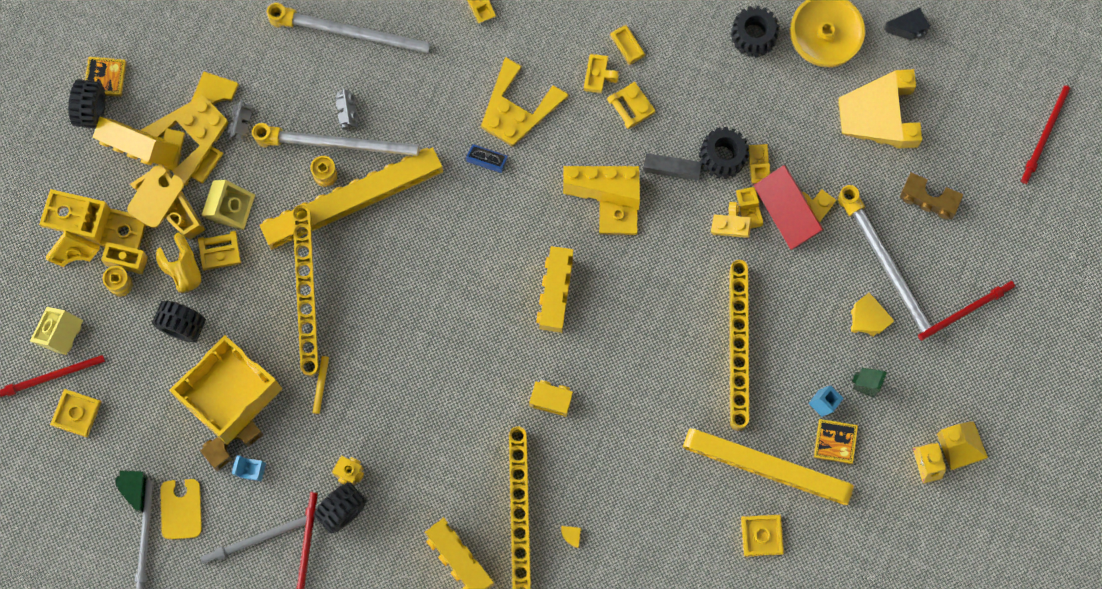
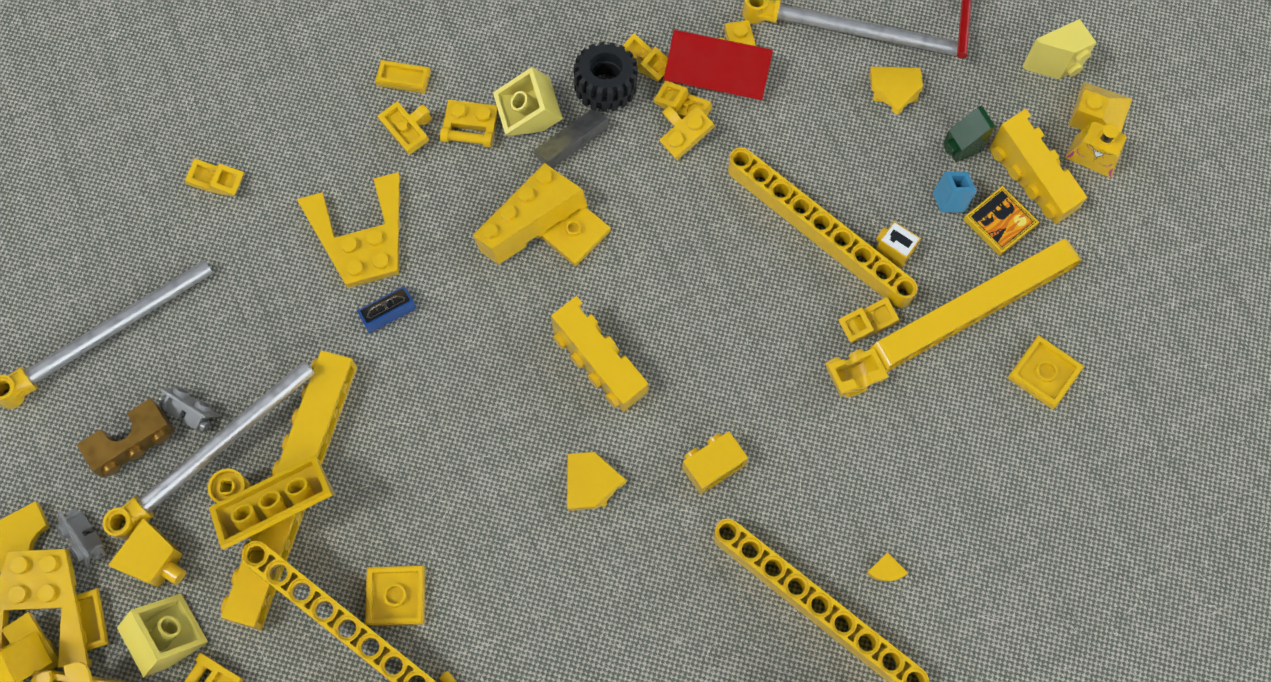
camera: 50 degrees left, 5 degrees down
(259, 163) = (149, 557): none -> yellow torso
(320, 101) = (148, 429): none -> pearl gold arch
(333, 196) = (270, 502): none -> yellow slope
(343, 299) = (395, 596): none -> yellow tile
(485, 344) = (590, 481): none -> yellow slope
(667, 433) = (856, 373): none -> yellow cylinder
(669, 126) = (527, 104): none -> light yellow slope
(707, 416) = (869, 321): none -> yellow slope
(766, 394) = (897, 243): none -> brick
(883, 436) = (1036, 168): none -> yellow wedge
(974, 391) = (1061, 51): none -> light yellow slope

